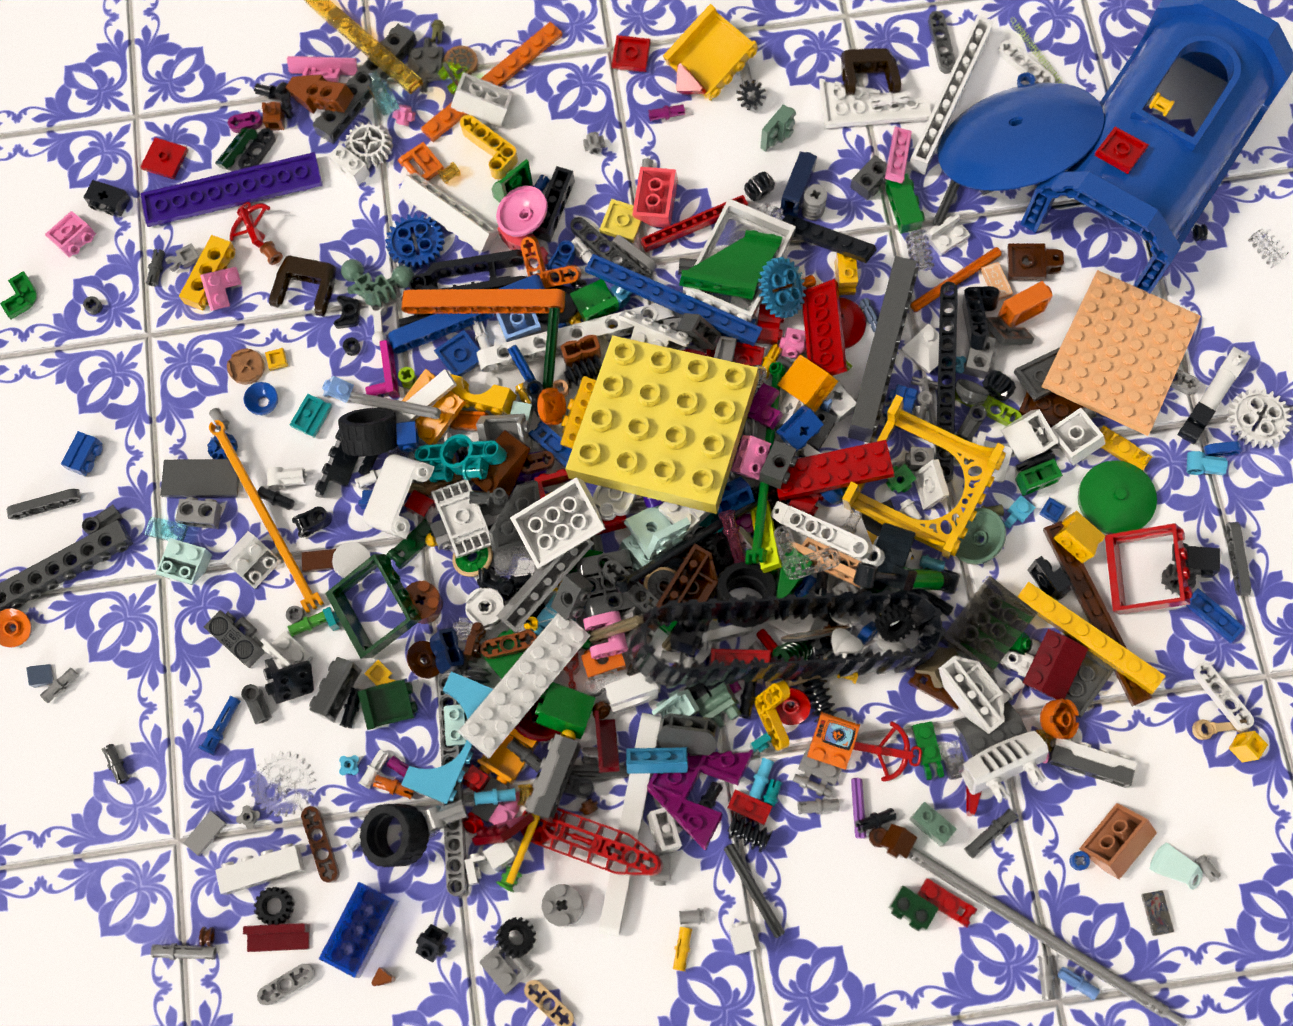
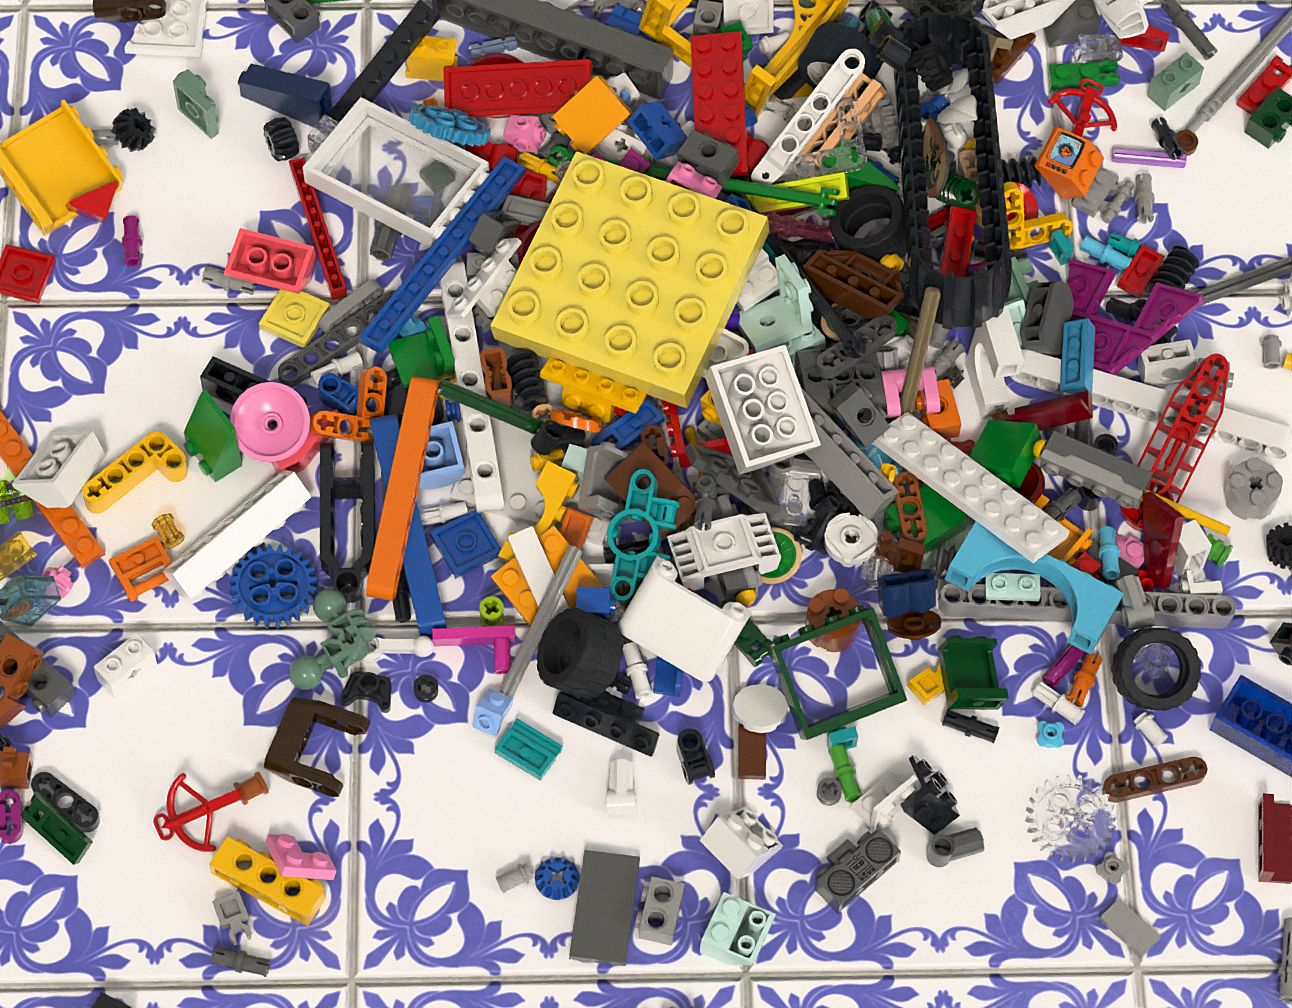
camera: 90 degrees left, 10 degrees down
(164, 158) = (46, 942): red plate -> none
(165, 529) = (679, 960): clear light blue plate -> none
(207, 936) = (1271, 927): reddish brown bush -> none
(214, 735) = (992, 904): blue pin -> none
(231, 189) = (127, 843): dark purple plate -> none
(245, 366) = (431, 839): medium nougat tile -> none
(256, 393) = (491, 800): blue piece -> none
(259, 870) = (1186, 854): white brick -> none
(263, 899) = (1228, 854): black tyre -> none
(275, 498) = (650, 806): black axle -> none
(276, 359) = (427, 795): yellow tile -> none
(309, 597) = (672, 819): light orange hinge -> none
(335, 689) = (946, 737): dark grey slope -> none
(377, 149) = (74, 630): white gear -> none
(522, 365) = (507, 449): blue axle -> none
(525, 791) = (1108, 518): clear yellow bush -> none
(588, 806) = (1128, 449): reddish brown plate -> none
(594, 143) = (163, 335): light grey gear -> none
(596, 685) = (971, 421): clear leg -> none
(734, 268) = (413, 166): green piece -> none
(814, 202) = (323, 67): light grey piece -> none
(898, 841) = (1195, 118): reddish brown brick -> none

